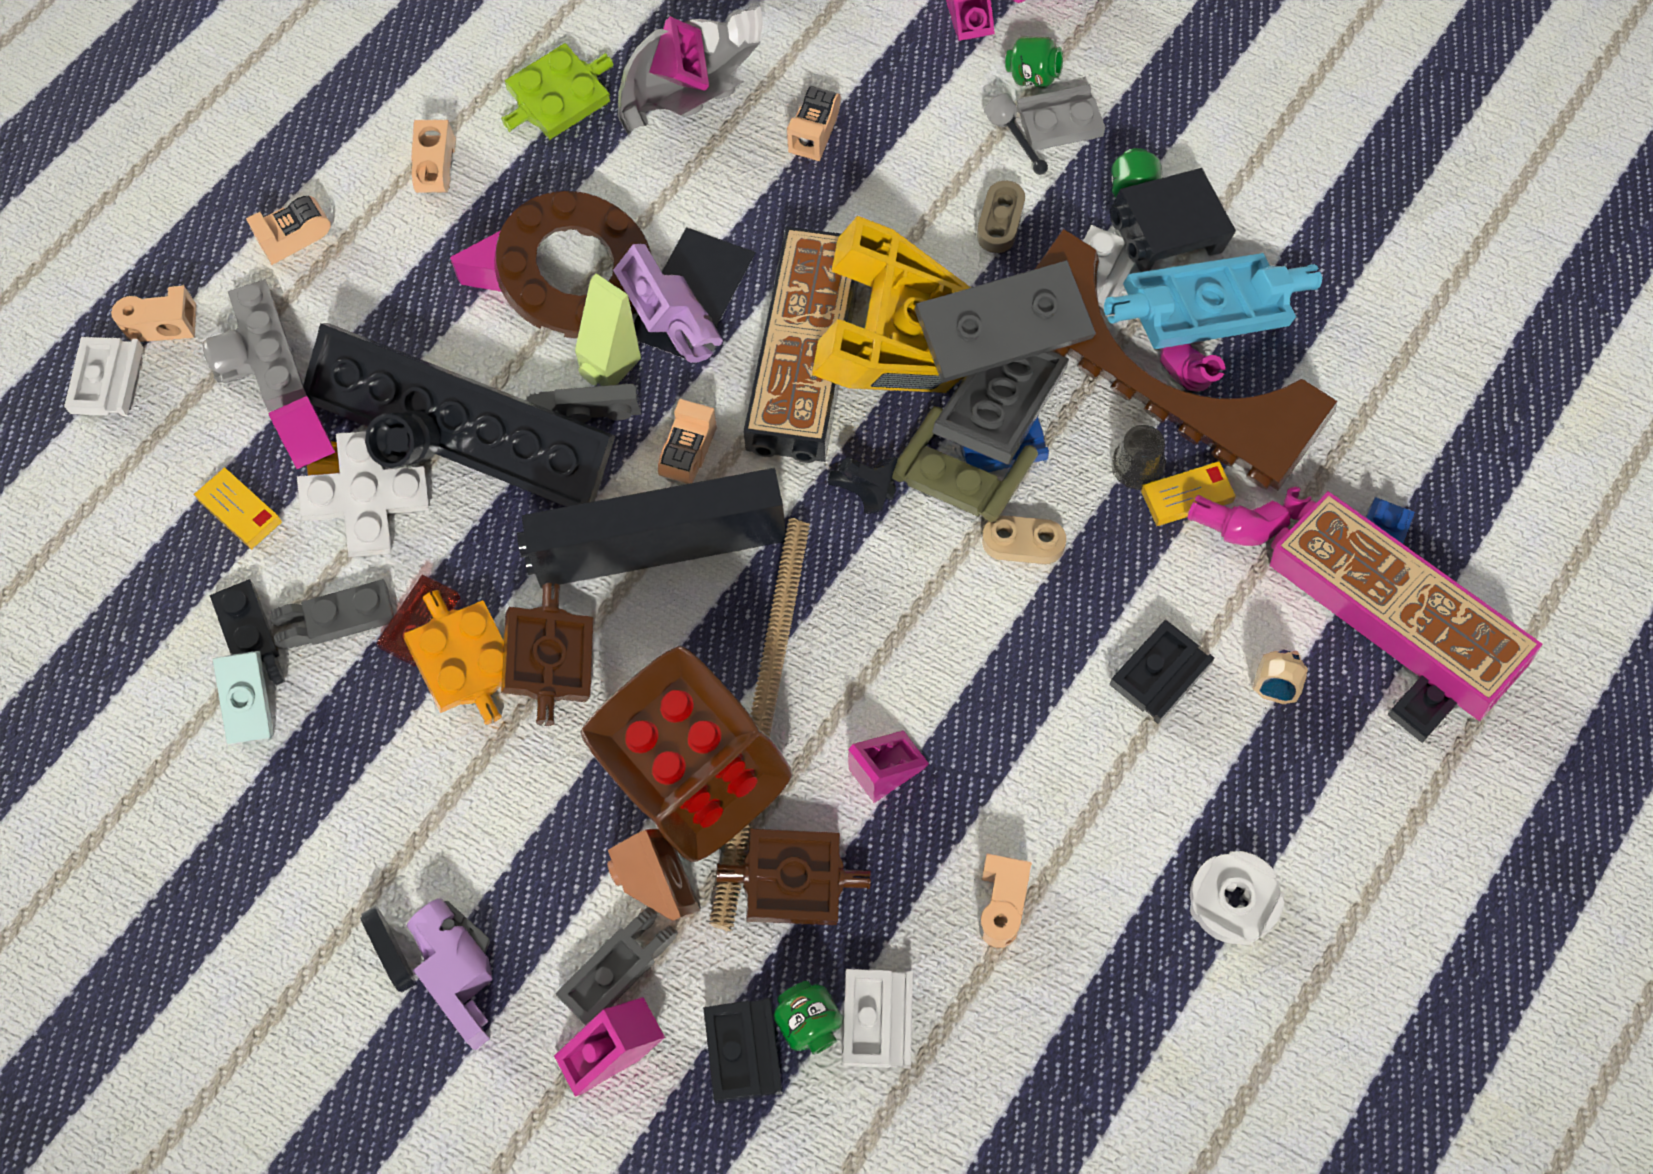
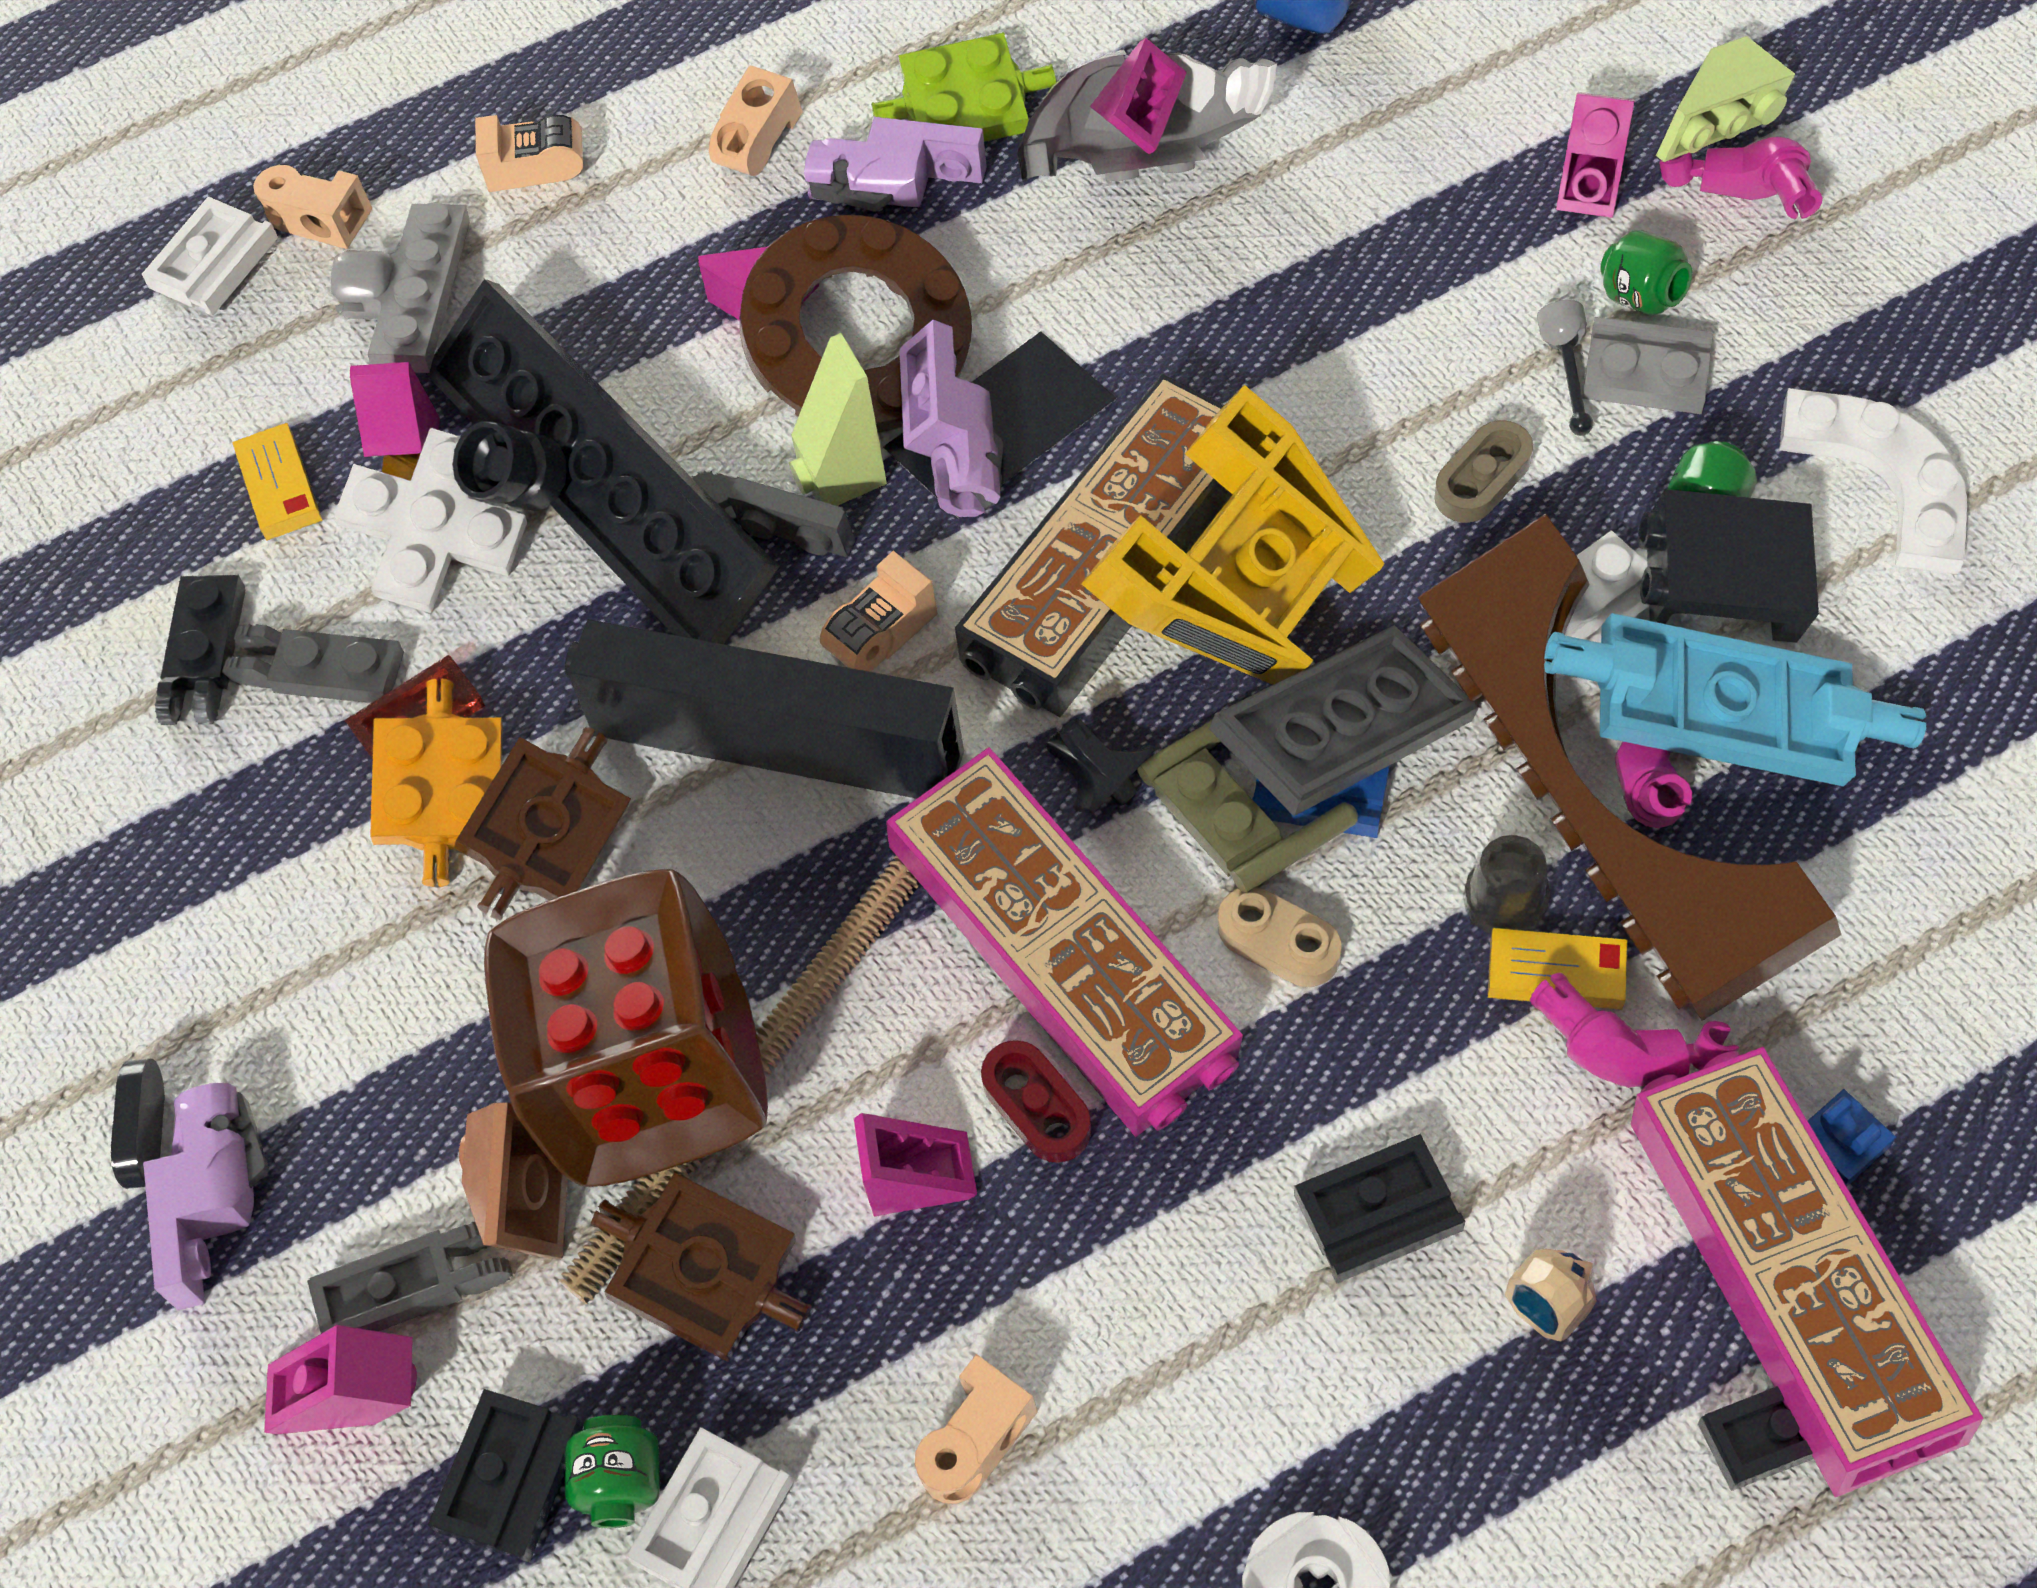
camera: 30 degrees right, 5 degrees down
(243, 697) = (144, 720): light aqua plate -> none
(538, 152) = (893, 163): none -> lavender plate
(813, 122) = (1284, 250): light nougat leg -> none
(907, 593) = (1065, 943): none -> brick
(939, 692) = (1039, 1103): none -> dark red plate
(1004, 321) = (1392, 612): dark grey plate -> none
(1230, 120) = (1903, 453): none -> white plate

